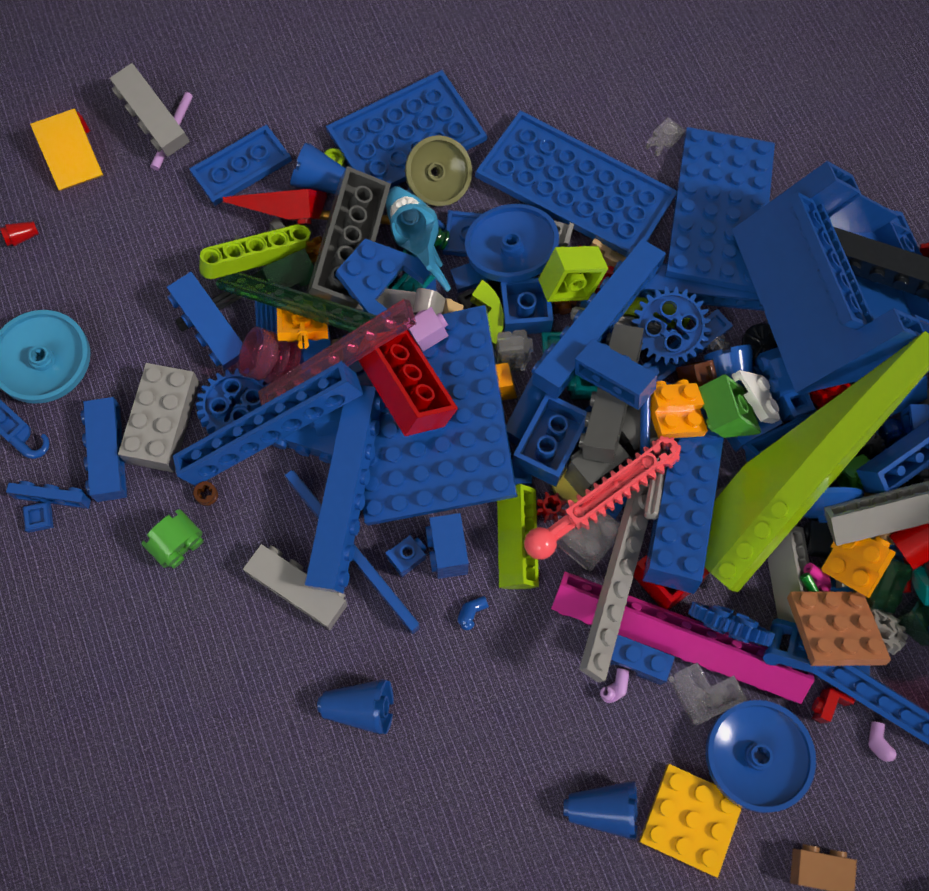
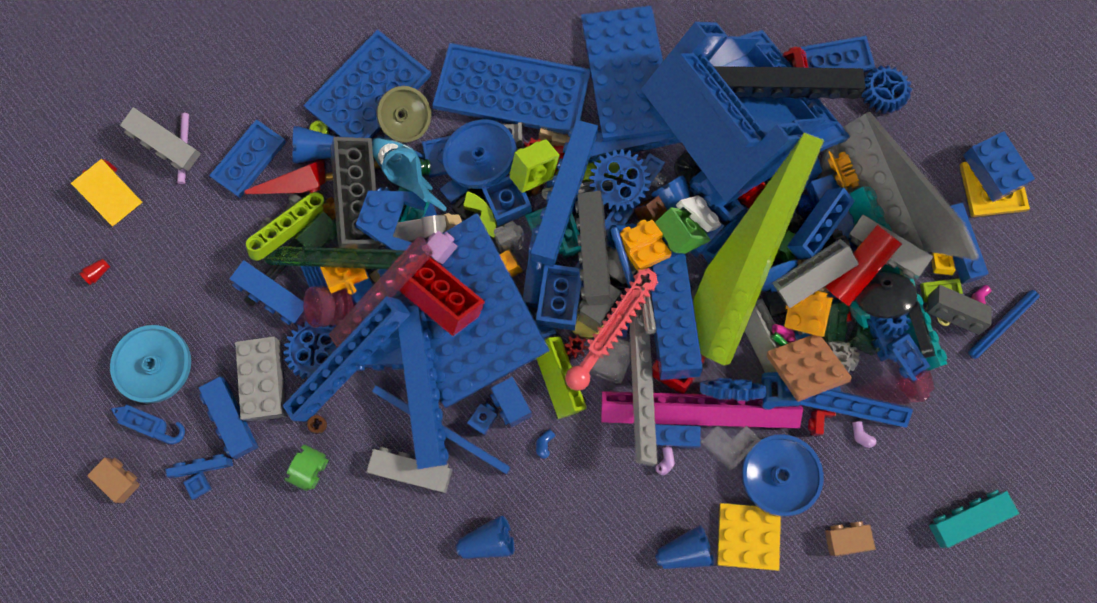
camera: 15 degrees left, 5 degrees up
(615, 374) = (591, 235): blue brick -> none
(665, 134) = (567, 25): clear plate -> none

